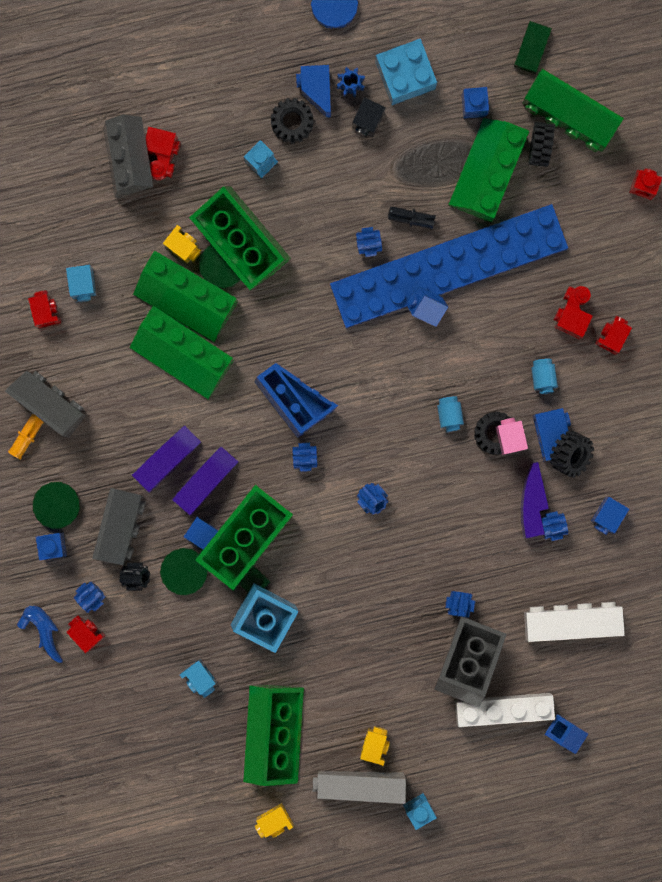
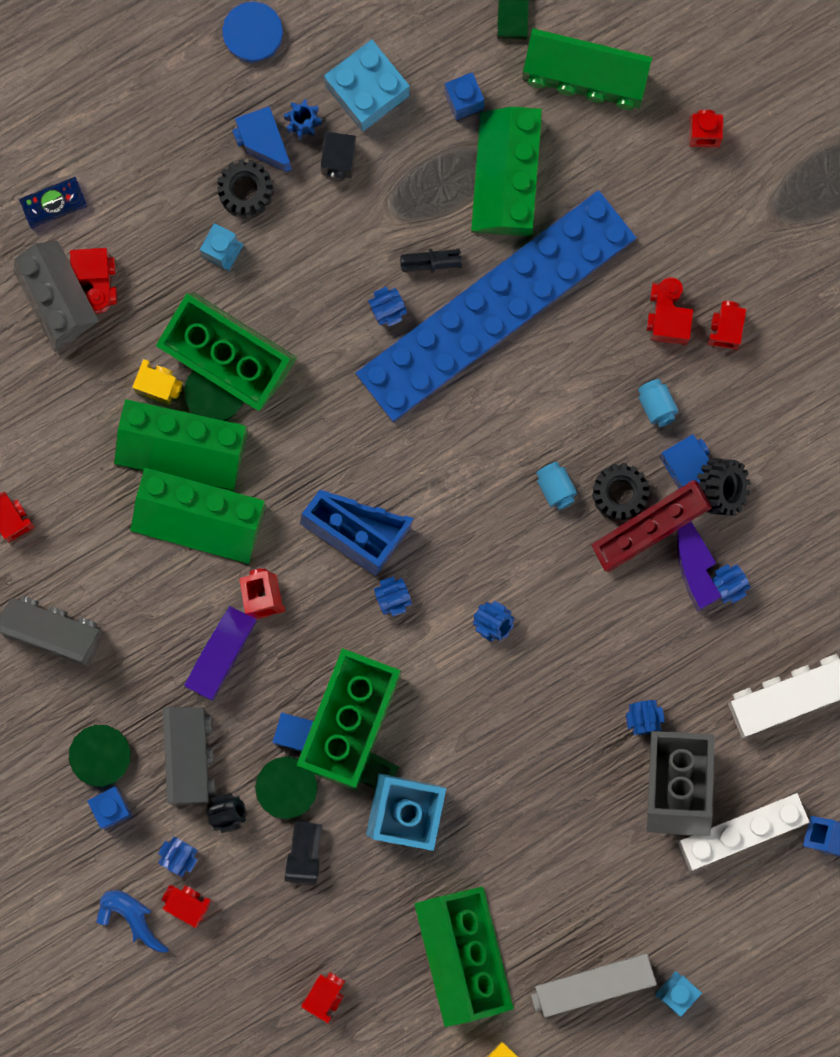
camera: 15 degrees left, 5 degrees down
(26, 436) = (35, 681): light orange axle -> none
(81, 282) = (45, 468): dark azure brick -> none
(148, 86) = (53, 202): none -> tile
(163, 731) = (324, 996): none -> red brick
(180, 627) = (303, 861): none -> black piece
(199, 679) = (348, 915): dark azure brick -> none
(203, 423) = (252, 589): none -> red brick
(205, 481) = (277, 665): dark purple slope -> none
(375, 745) = (596, 928): yellow brick -> none
(427, 306) = (485, 362): blue brick -> none
(510, 466) = (651, 526): none -> dark red plate
(511, 436) = (640, 488): bright pink brick -> none
(541, 144) = (562, 121): black tyre -> none
(609, 516) = (794, 549): blue brick -> none

